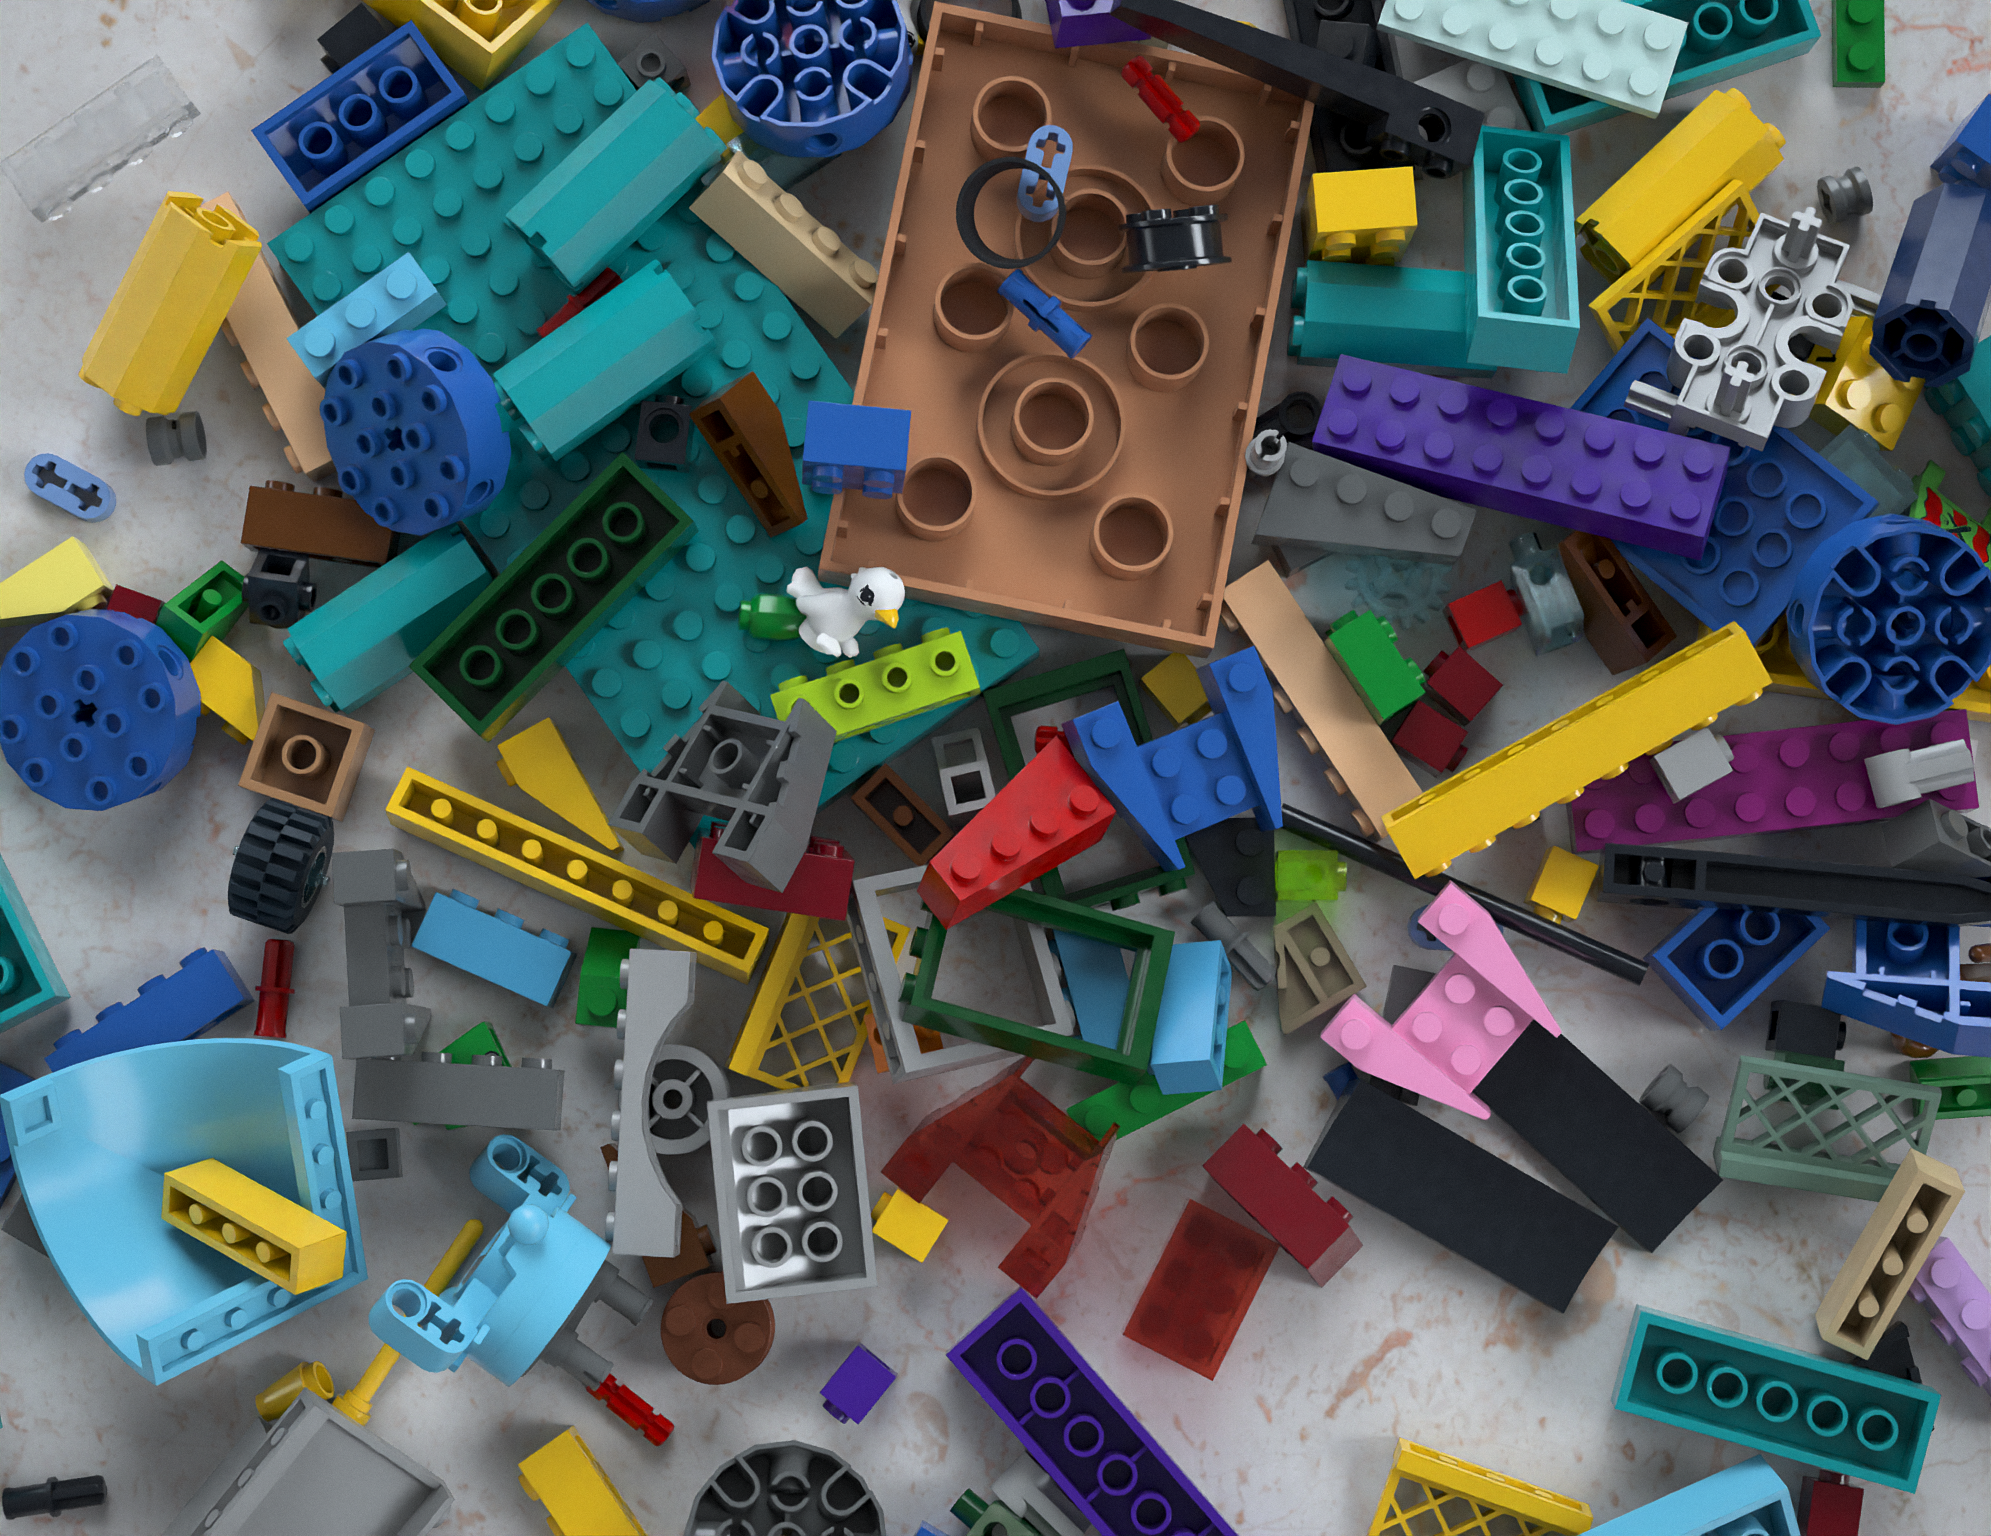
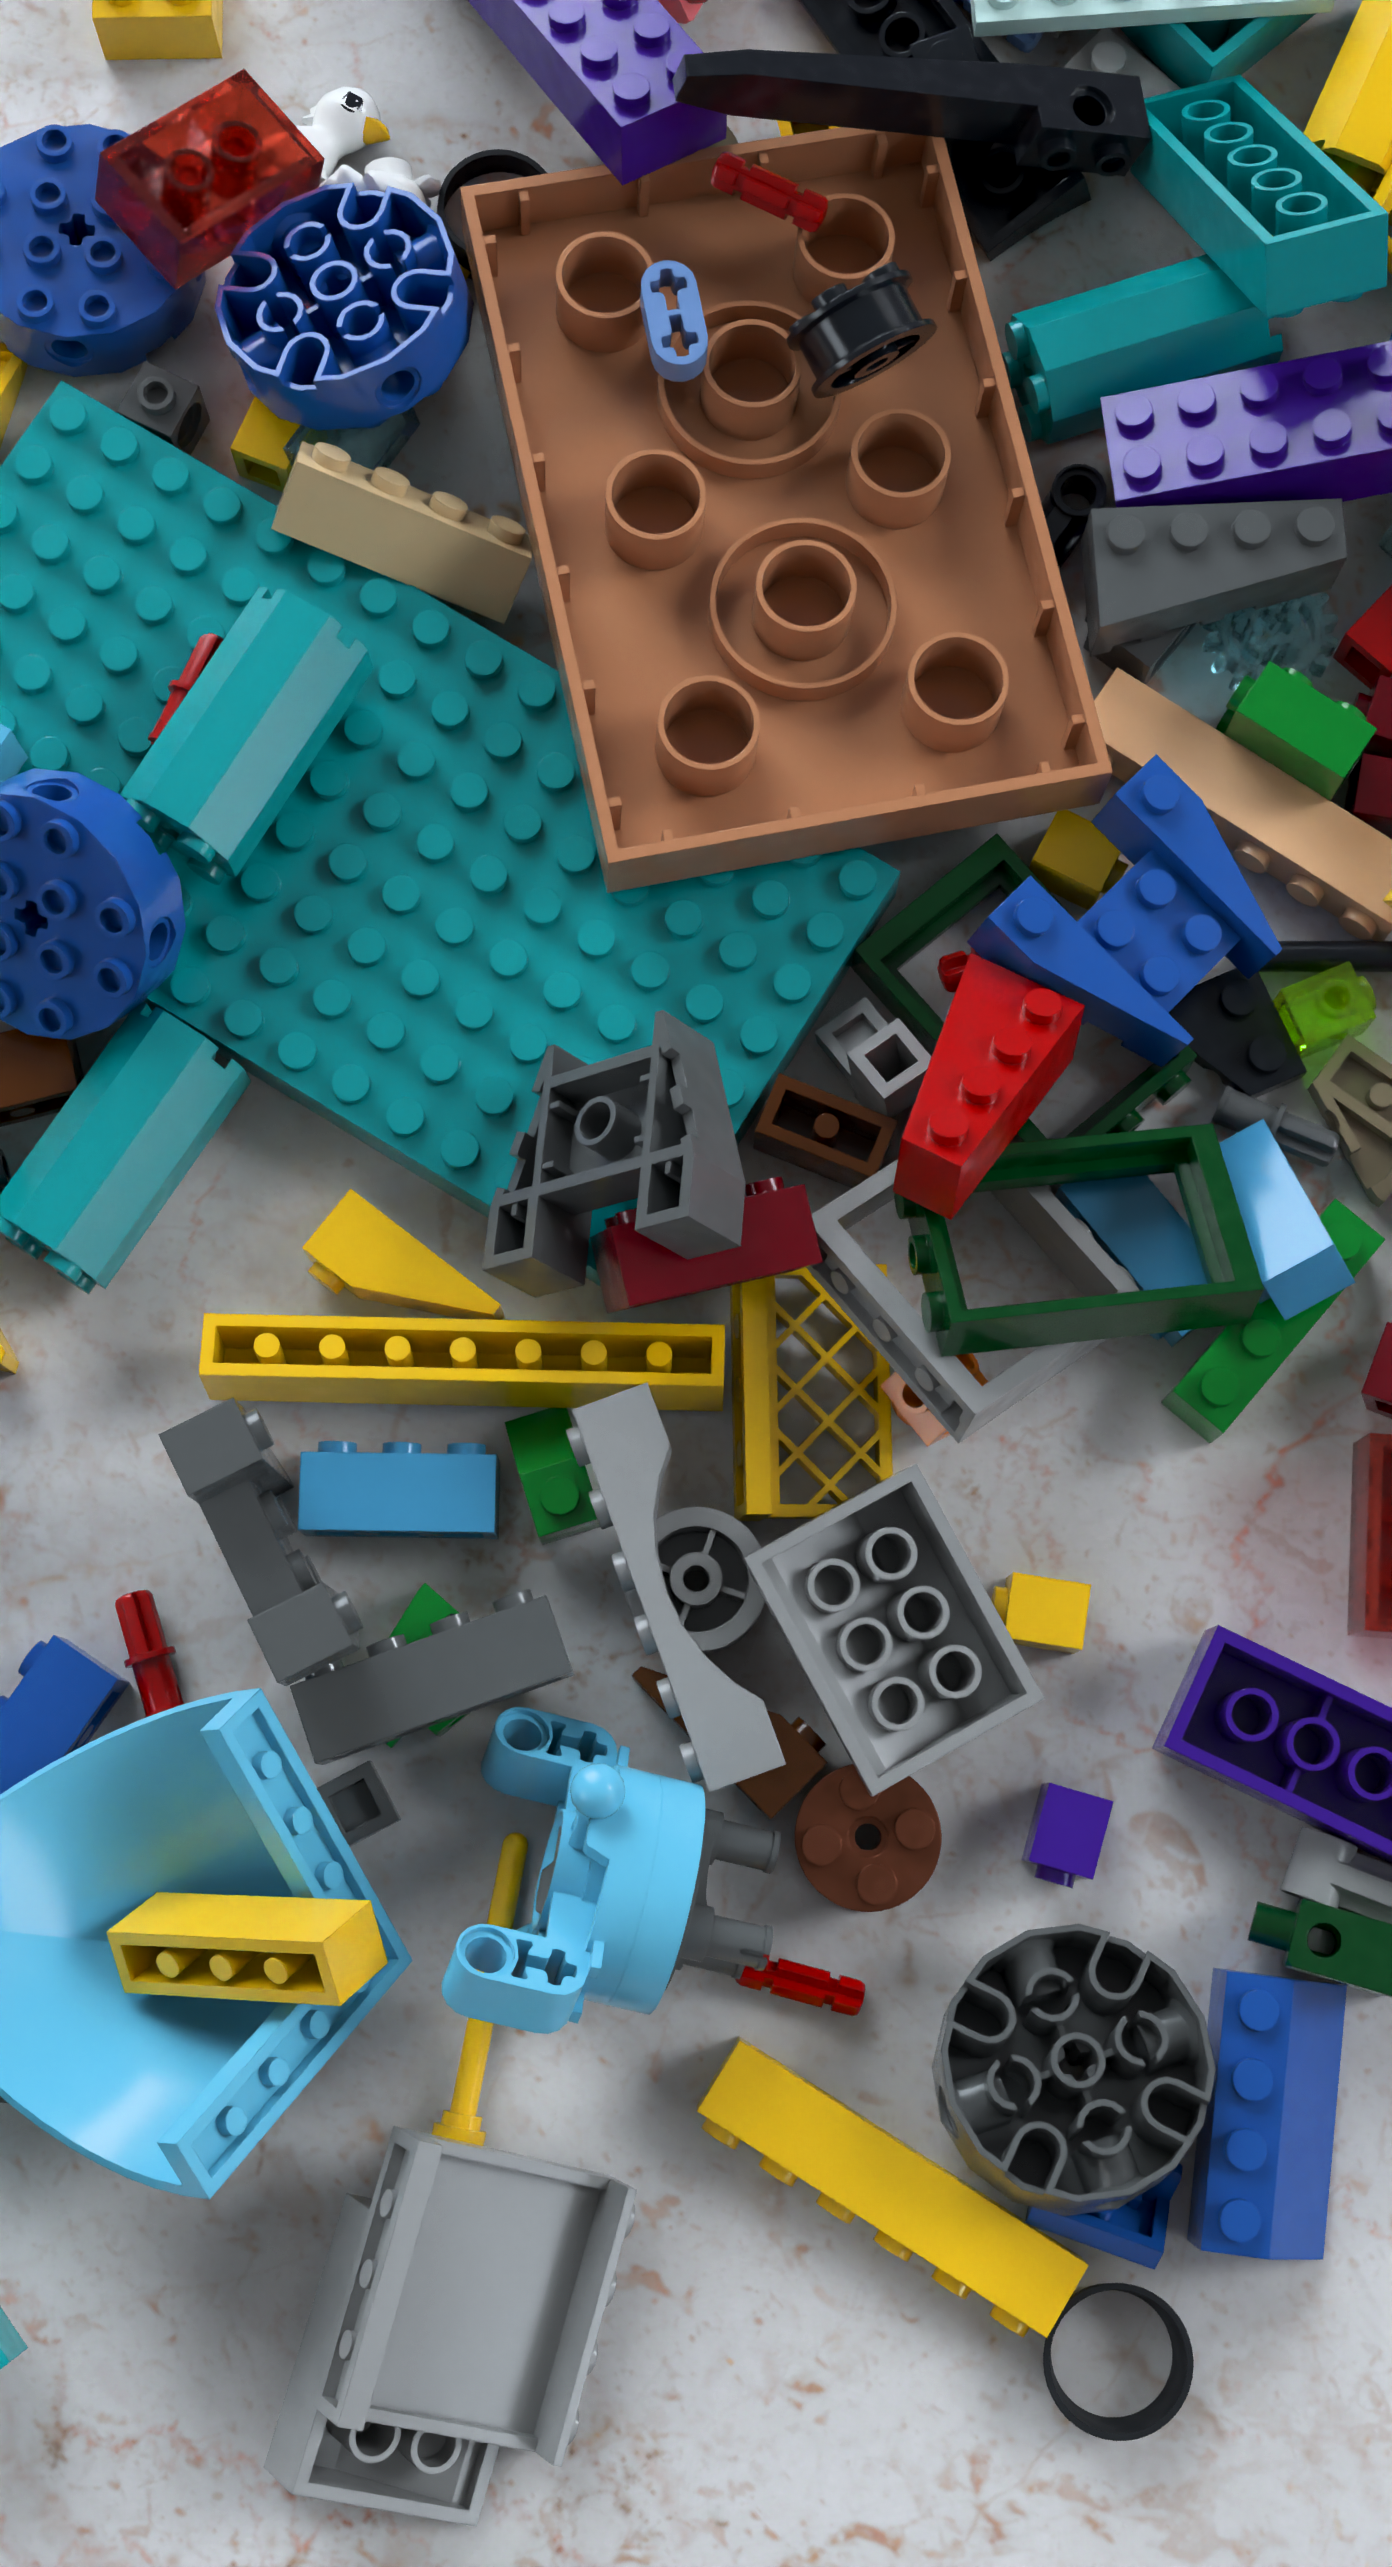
camera: 25 degrees left, 5 degrees down
(54, 1496) = (128, 2409): black axle -> none
(280, 866) = (97, 1497): black wheel -> none
(281, 1394) = (365, 2152): yellow cone -> none
(306, 756) = (74, 1357): medium nougat brick -> none
(554, 597) = (301, 1032): dark green brick -> none
(616, 184) = (174, 528): teal brick -> none
(668, 456) = (360, 820): black brick -> none
(754, 450) = (470, 770): reddish brown slope -> none
(771, 617) = (581, 952): green plant -> none
(839, 613) = (656, 907): white animal -> none
(855, 449) = (597, 694): blue brick -> none
(886, 688) = (751, 971): lime brick -> none
(966, 204) = (619, 322): black tyre -> none
(1022, 1155) = (1144, 1466): clear red wedge -> none
(1044, 313) = (703, 459): blue pin -> none
(1265, 454) = (1073, 529): light grey axle -> none
(1359, 216) = (1052, 233): yellow brick -> none

